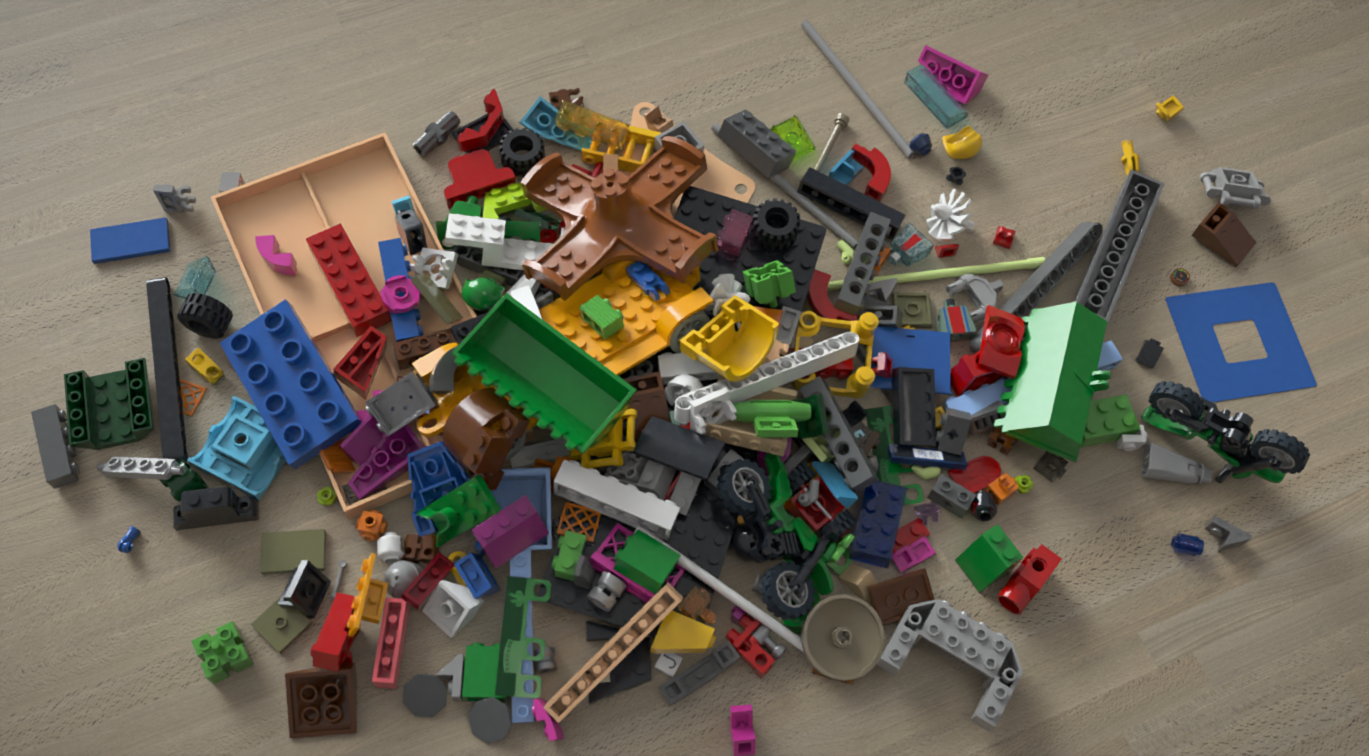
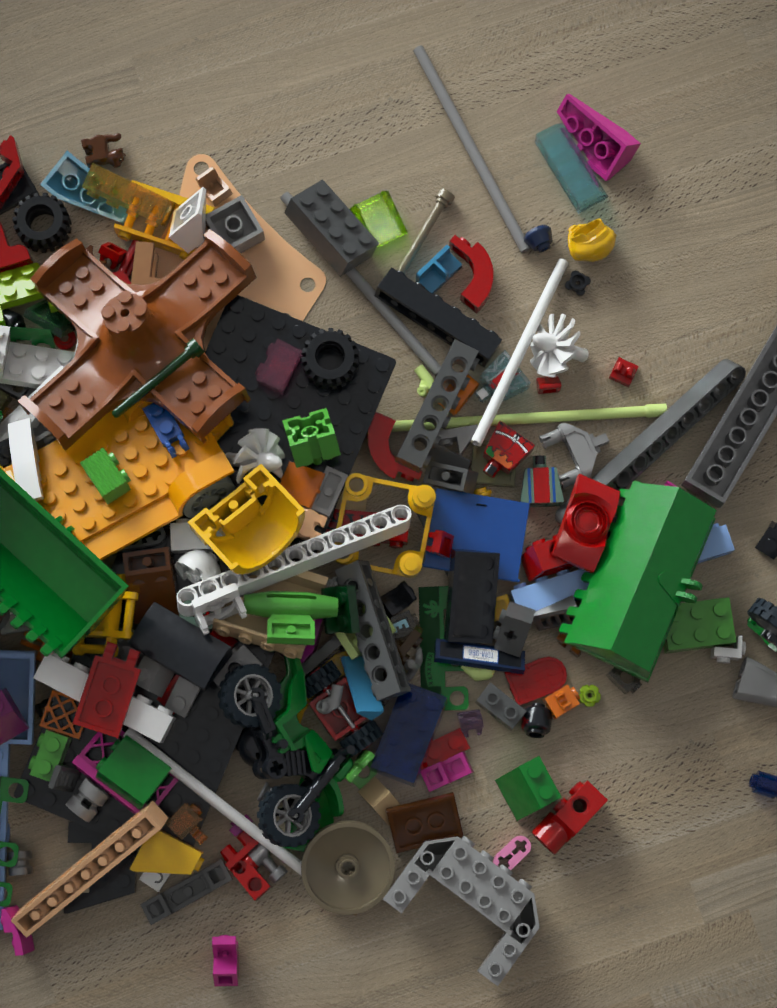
camera: 10 degrees right, 15 degrees up
(621, 489) = (108, 692): none -> red tile
(644, 140) = (190, 222): none -> white slope
(667, 214) = (191, 350): none -> dark green piece
(921, 223) = (519, 353): none -> white piece
(922, 295) = (505, 450): none -> red torso
(980, 611) = (505, 851): none -> bright pink beam

